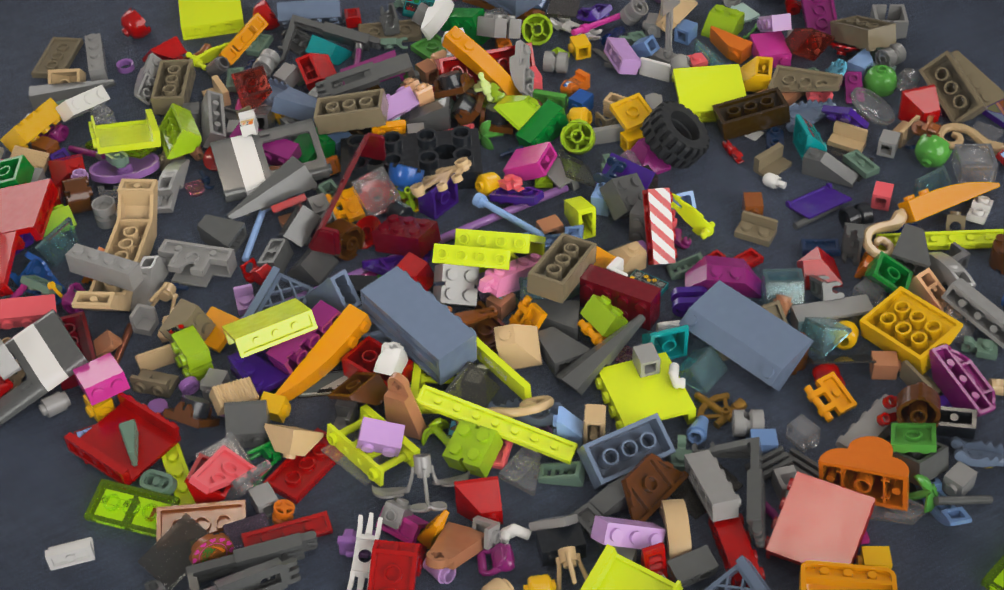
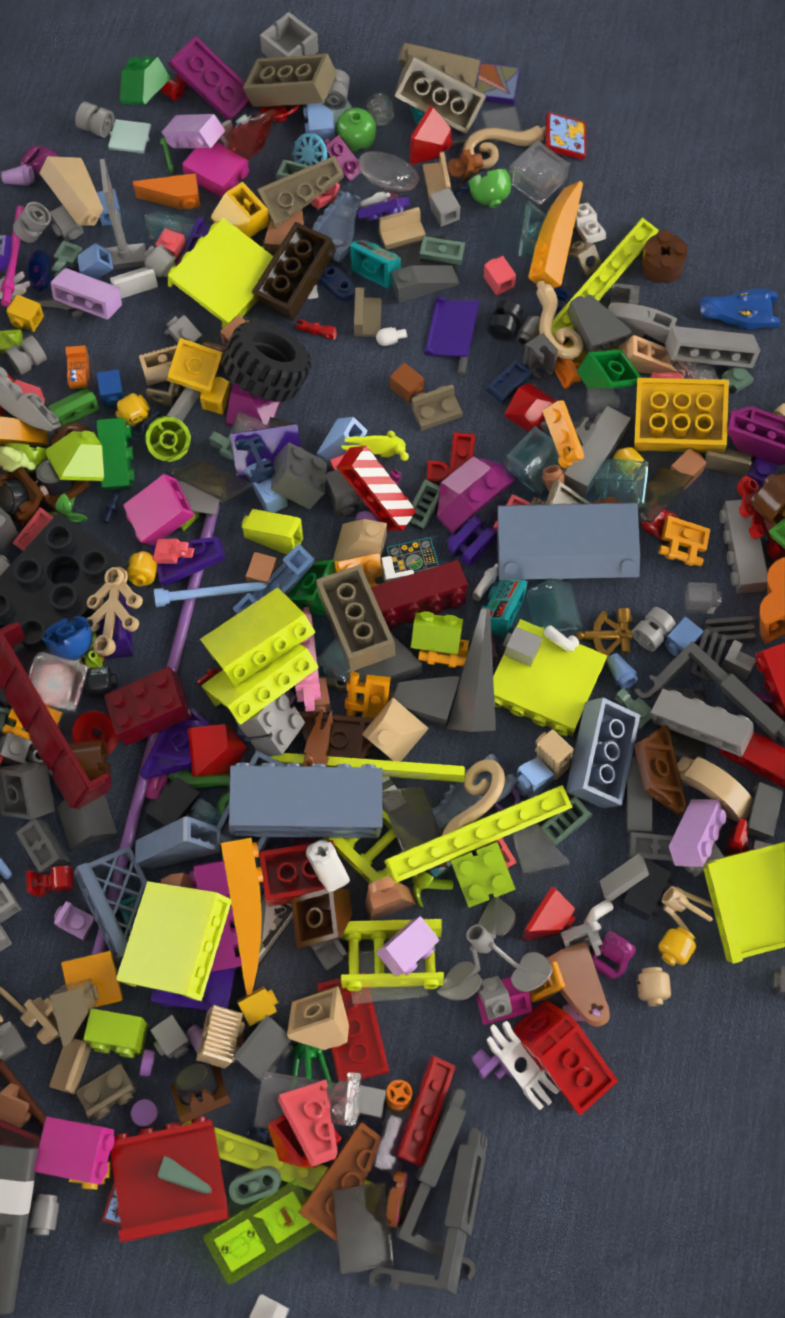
camera: 50 degrees left, 25 degrees up
(725, 19) = (132, 163): lime slope -> none
(812, 281) = (563, 434): none -> light orange plate

